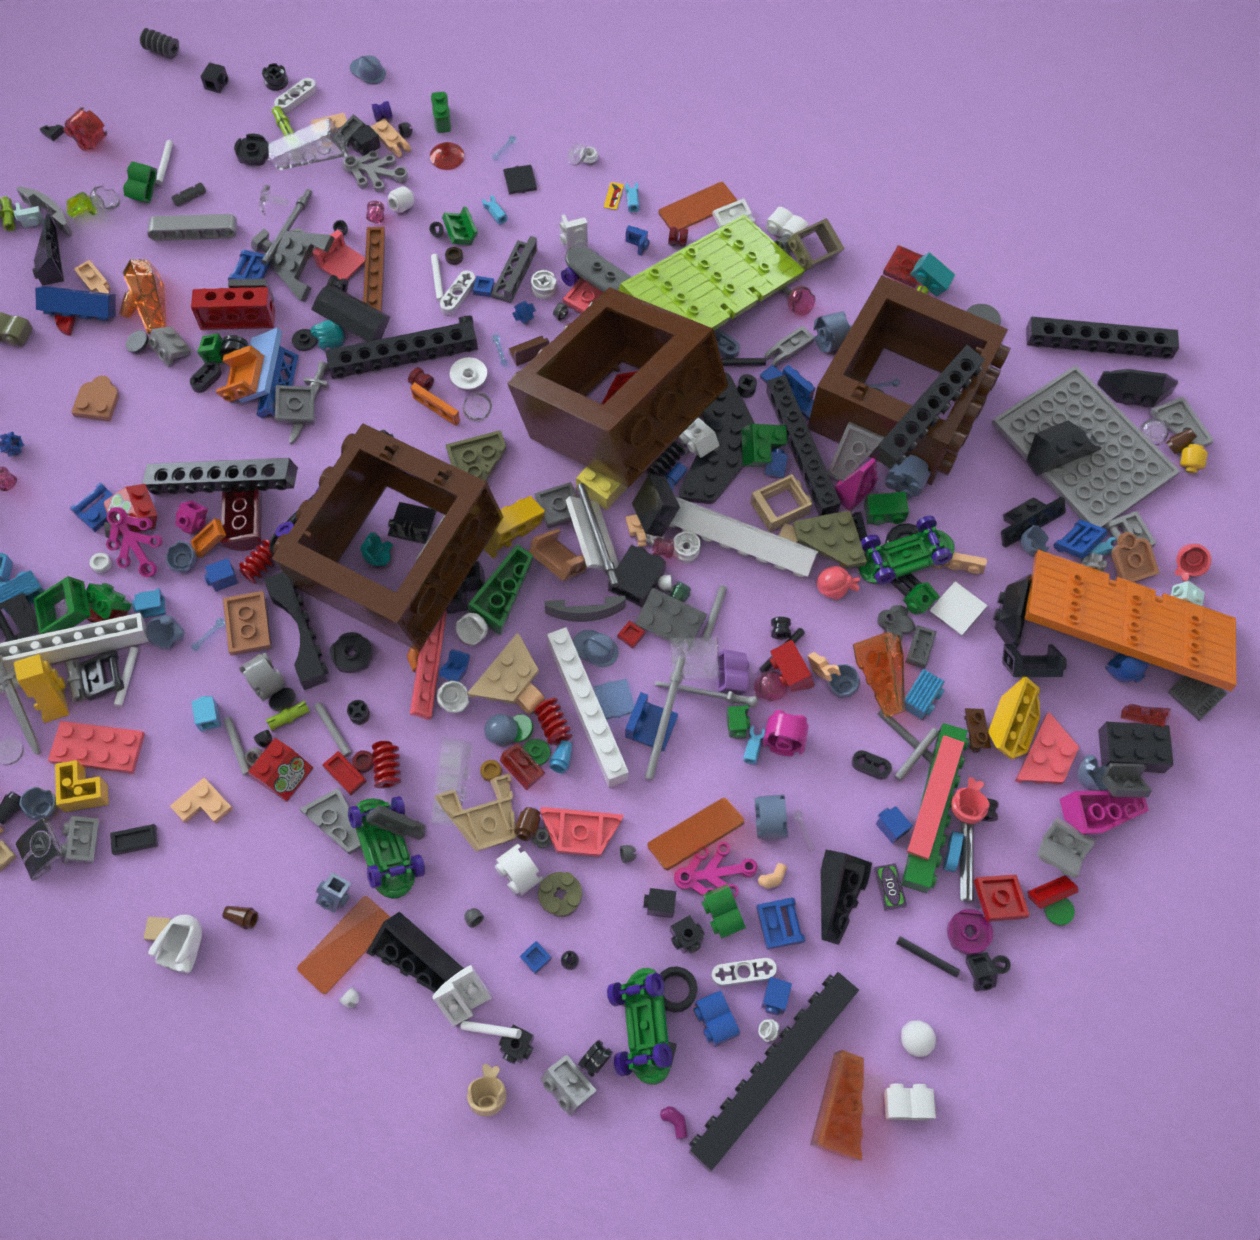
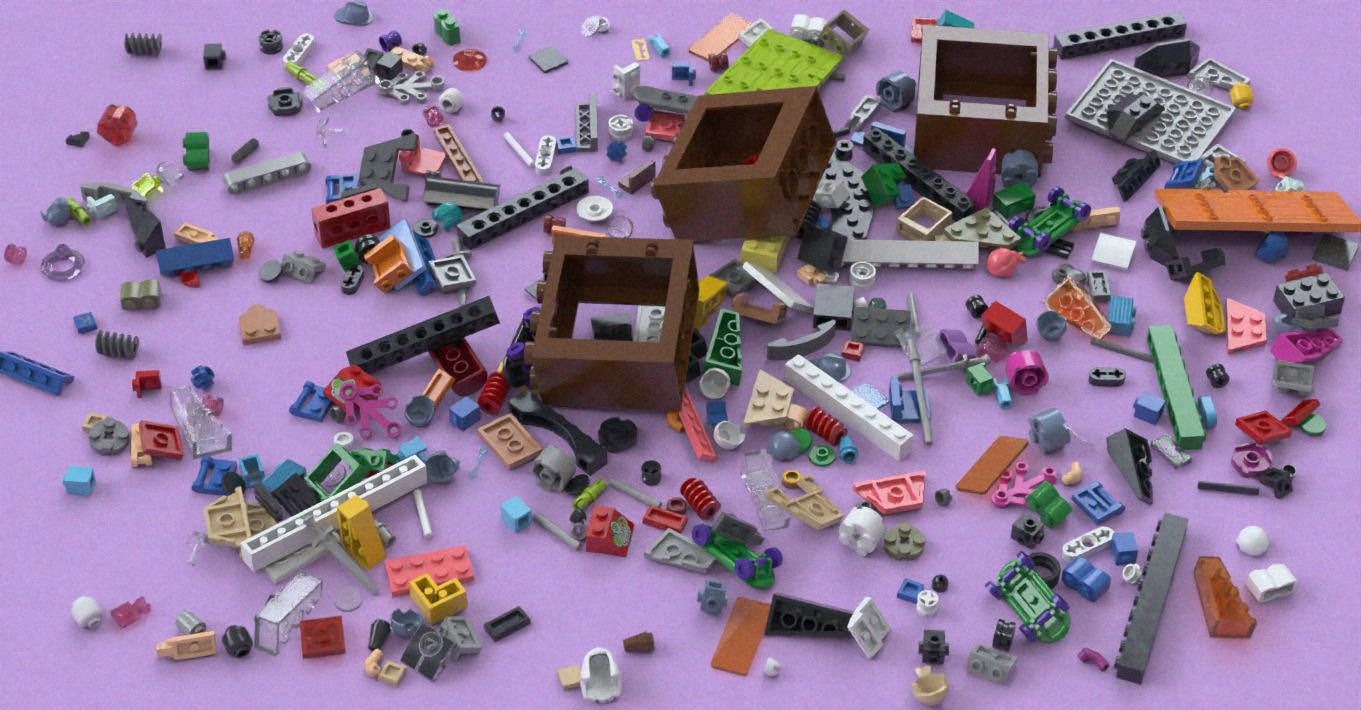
camera: 20 degrees left, 20 degrees down
(95, 676) = (397, 520): black plate -> none
(147, 292) = (258, 227): clear orange wedge -> none
(164, 162) = (202, 125): white bar -> none
(191, 517) = (417, 377): dark pink brick -> none
(201, 797) = (550, 575): light nougat plate -> none
(261, 241) = (341, 165): light grey tile -> none
(301, 204) = (358, 130): flat silver bar -> none
(454, 255) = (524, 130): dark brown tile -> none
(460, 227) = (519, 105): green bracket -> none
(473, 917) = (841, 580): dark grey hinge -> none
(491, 1029) = (906, 642): white bar -> none
(495, 210) = (541, 86): medium azure bar -> none
(521, 766) = (818, 467): clear red slope -> none
(527, 824) = (847, 500): reddish brown brick -> none
(542, 978) = (927, 603): none -> white wheel
(608, 565) = (808, 301): flat silver bar -> none
(660, 902) = (993, 517): black brick -> none
(663, 547) = (845, 279): clear pink wheel -> none
(801, 300) = (854, 77): clear pink hair -> none
(821, 667) = (1032, 321): light nougat plate -> none
(853, 449) = (965, 162): light grey wing -> none
(917, 754) = (1139, 357): light grey bar -> none
(920, 598) = (1080, 251): green brick -> none
(928, 407) = (1020, 98): black brick -> none
(935, 798) = (1173, 375): coral tile -> none
(967, 863) = (1222, 416): flat silver axle -> none
(969, 803) = (1201, 370): coral hat -> none
(977, 729) = (1178, 324): reddish brown hinge -> none
(1034, 539) = (1146, 186): sand blue hair -> none
(1181, 440) = (1223, 88): reddish brown cone -> none

